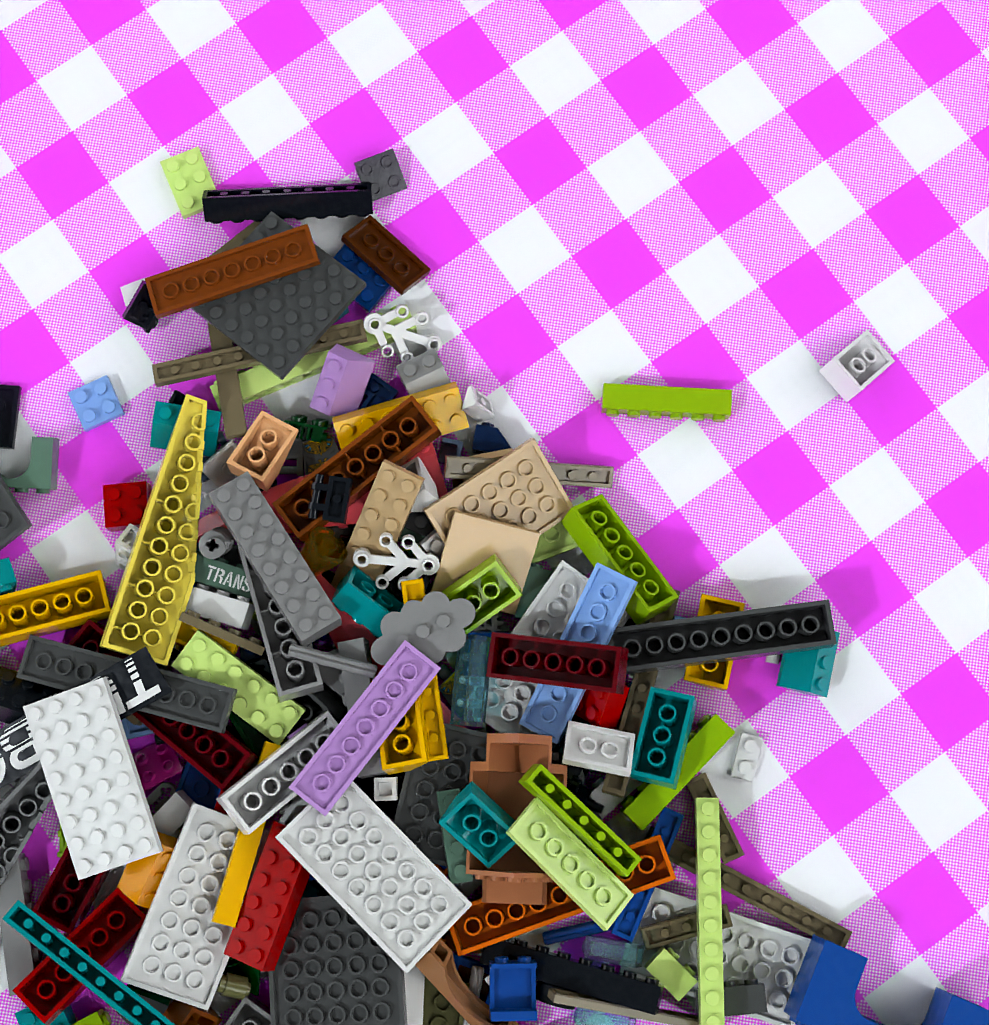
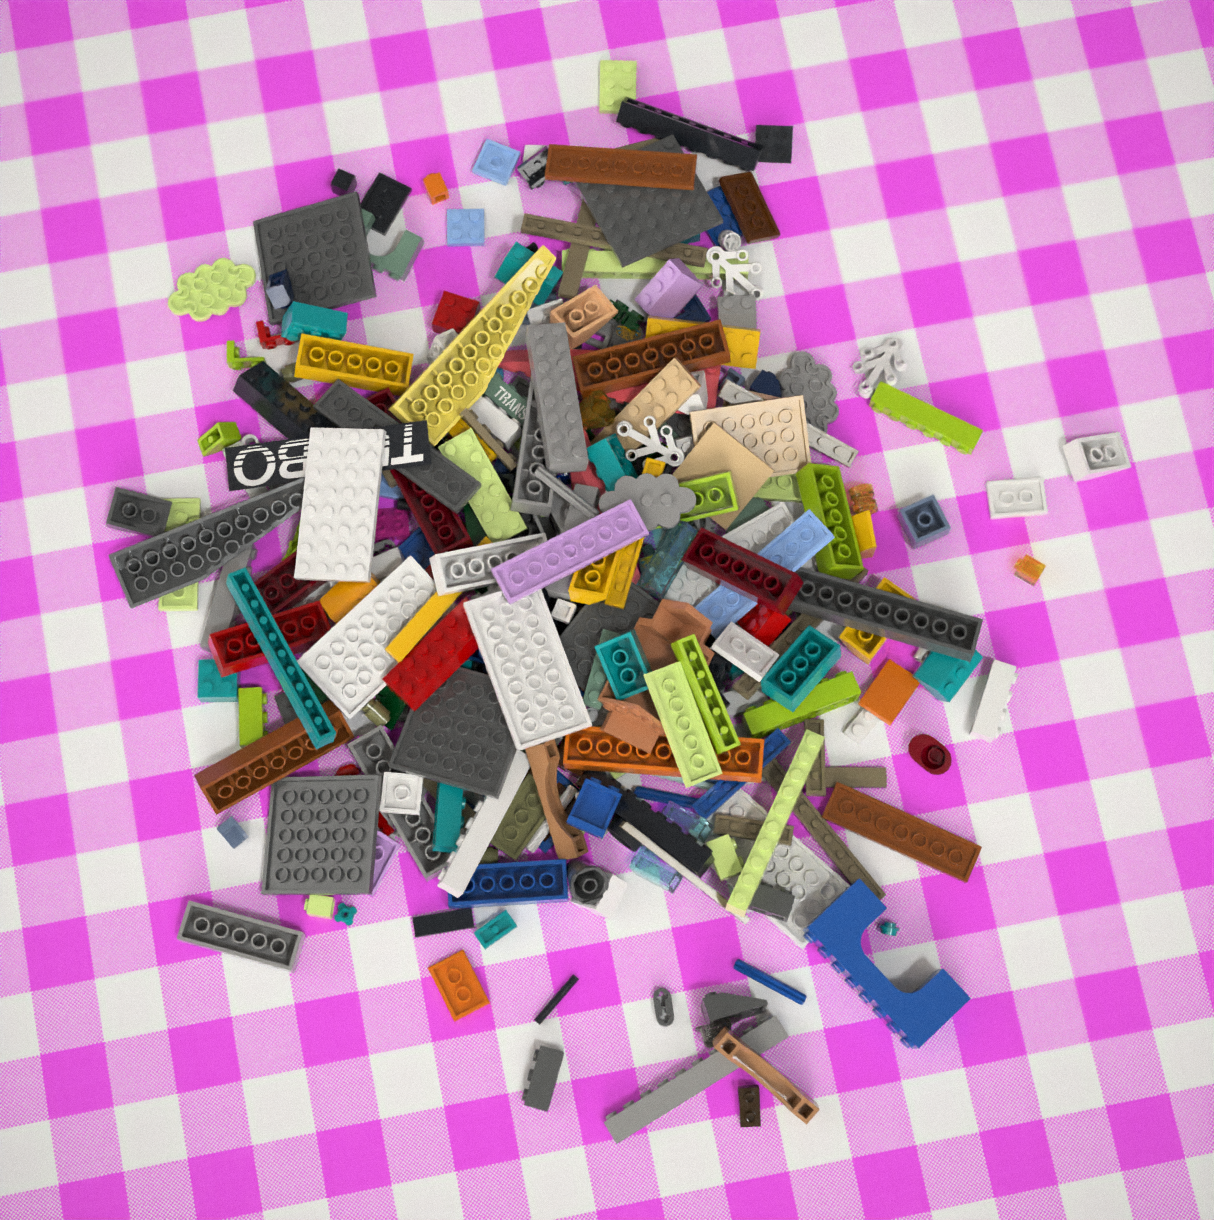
camera: 25 degrees right, 5 degrees down
(45, 375) = (435, 188): none -> orange brick
(98, 319) = (496, 162): none -> light blue plate
(210, 548) = (521, 374): light grey piece -> none
(336, 500) = (625, 372): black plate -> none
(385, 300) = (731, 243): none -> white wheel
(477, 405) = (769, 355): white slope -> none
(533, 416) = (814, 384): none -> light grey plate
(594, 364) = (880, 364): none -> white plant
(641, 518) = (863, 500): none -> clear yellow wheel
(660, 554) = (864, 534): none -> yellow slope
(714, 514) = (923, 521): none -> sand blue brick
(759, 712) = (889, 692): none -> orange tile
(764, 817) = (856, 777): none -> dark tan tile
(794, 444) = (1016, 498): none -> white tile
(831, 761) = (930, 754): none -> dark red piece
(837, 857) = (901, 832): none -> dark orange plate
(842, 516) = (1029, 569): none -> clear yellow brick
(868, 673) = (992, 701): none -> white brick
(872, 967) = (889, 928): none -> teal plate

